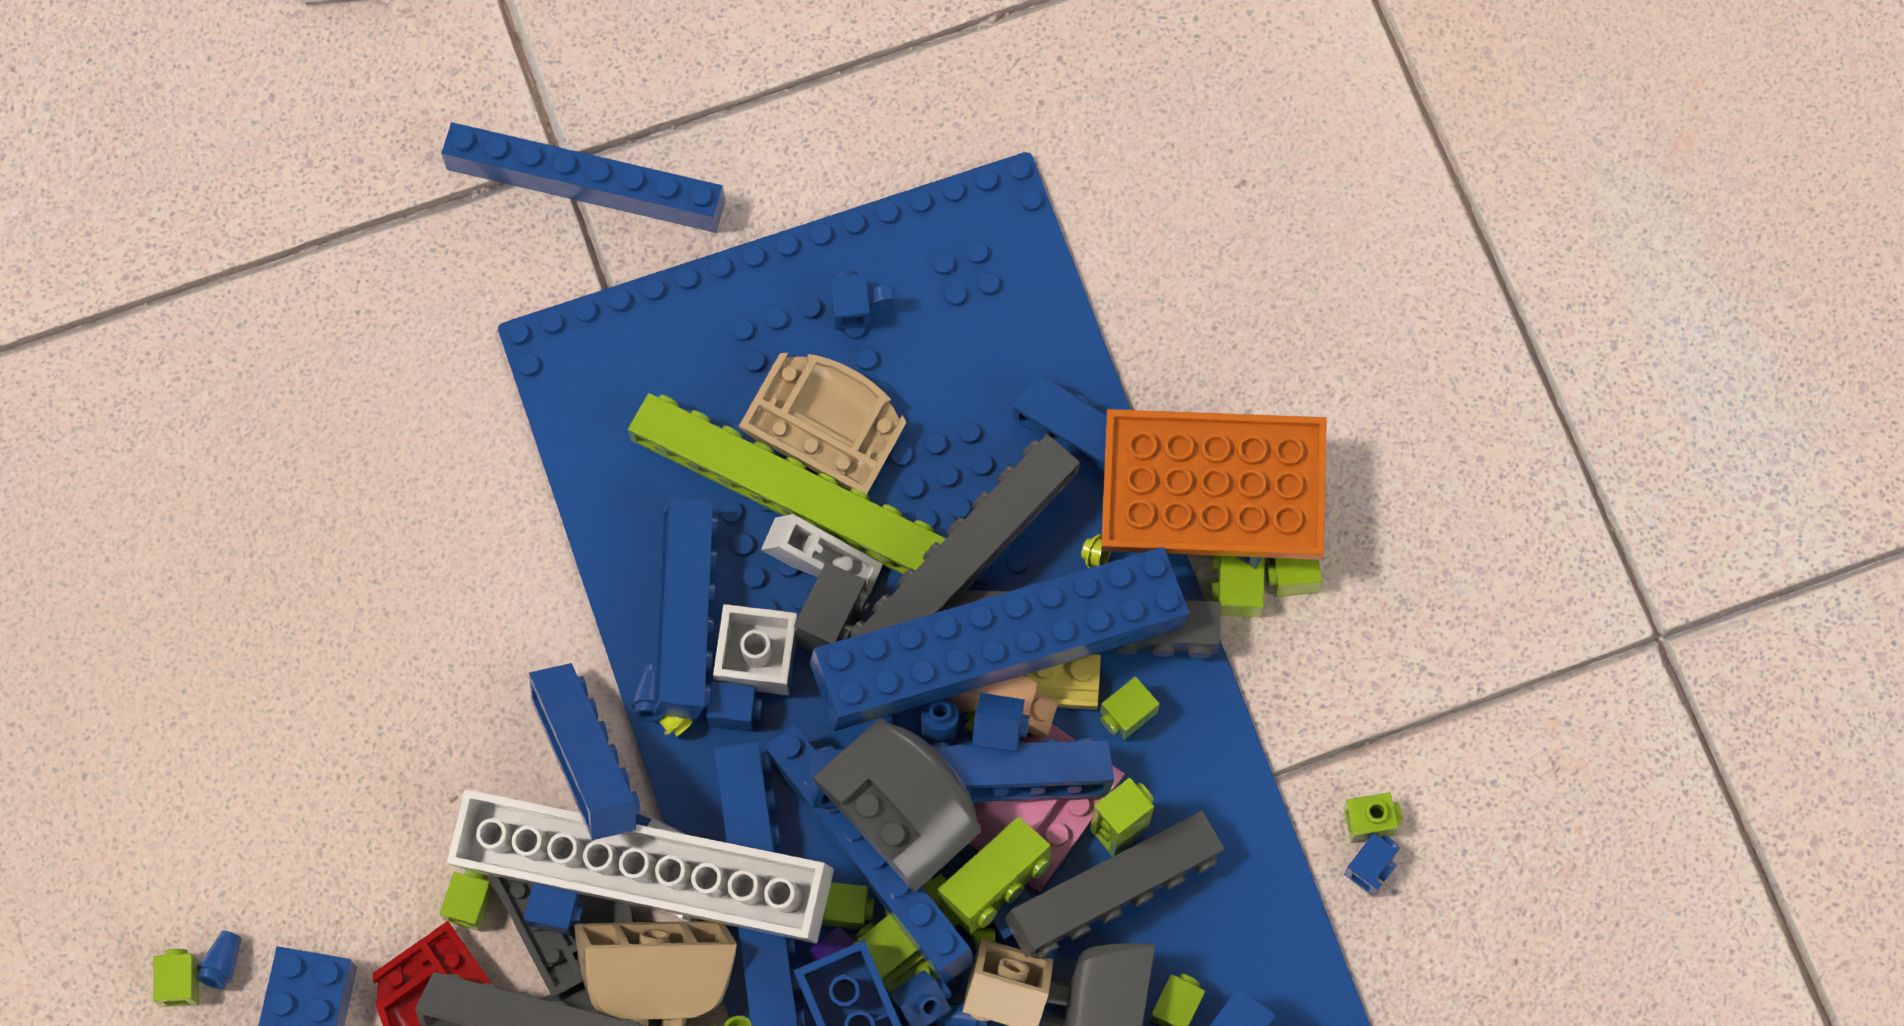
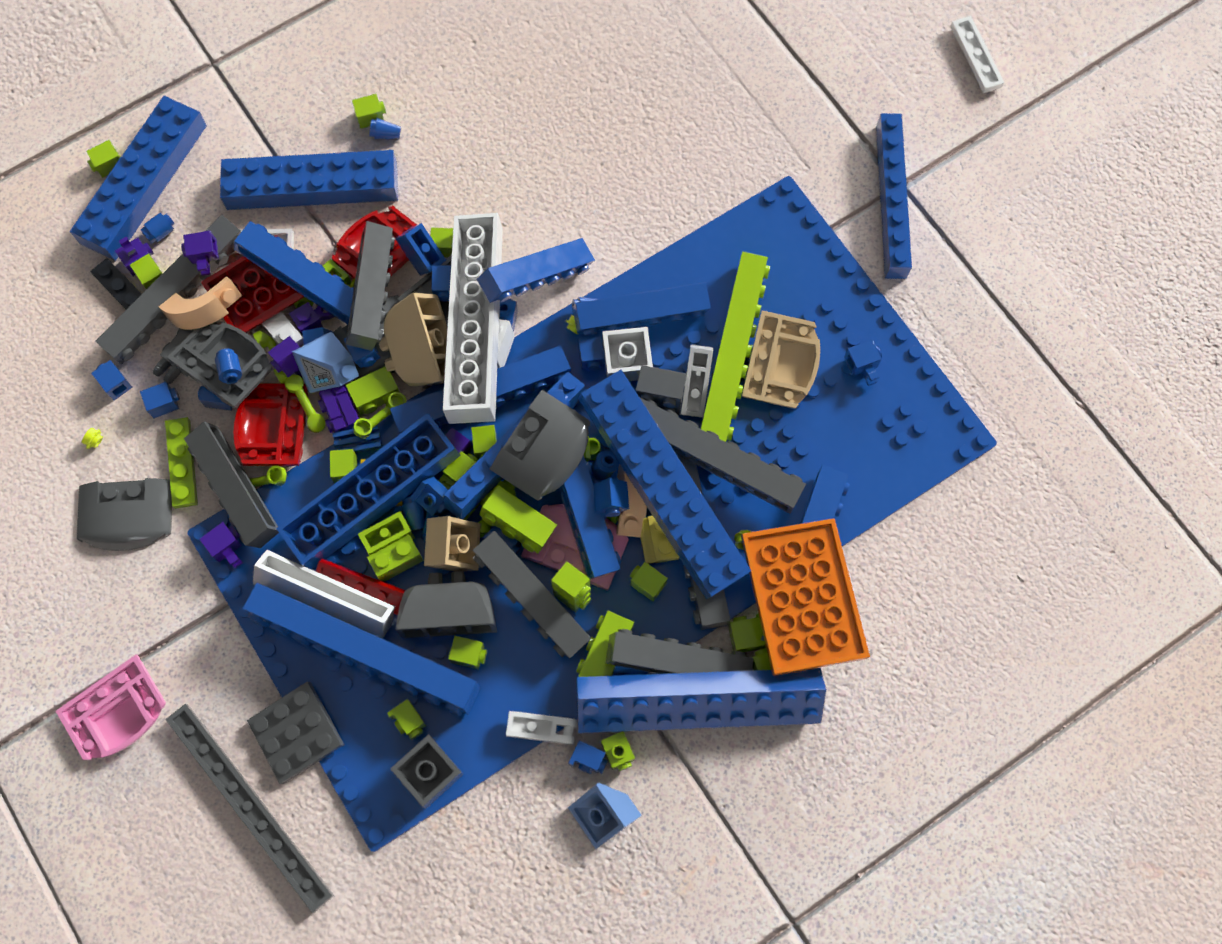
camera: 75 degrees right, 0 degrees up
(481, 936) = (420, 249): none -> blue brick
(1221, 796) = (597, 647): none -> lime brick
(1262, 692) = (669, 657): none -> dark grey brick
(1314, 921) = (540, 727): none -> white plate
(1329, 682) = (699, 700): none -> blue brick
(1460, 858) = (603, 813): none -> medium blue slope

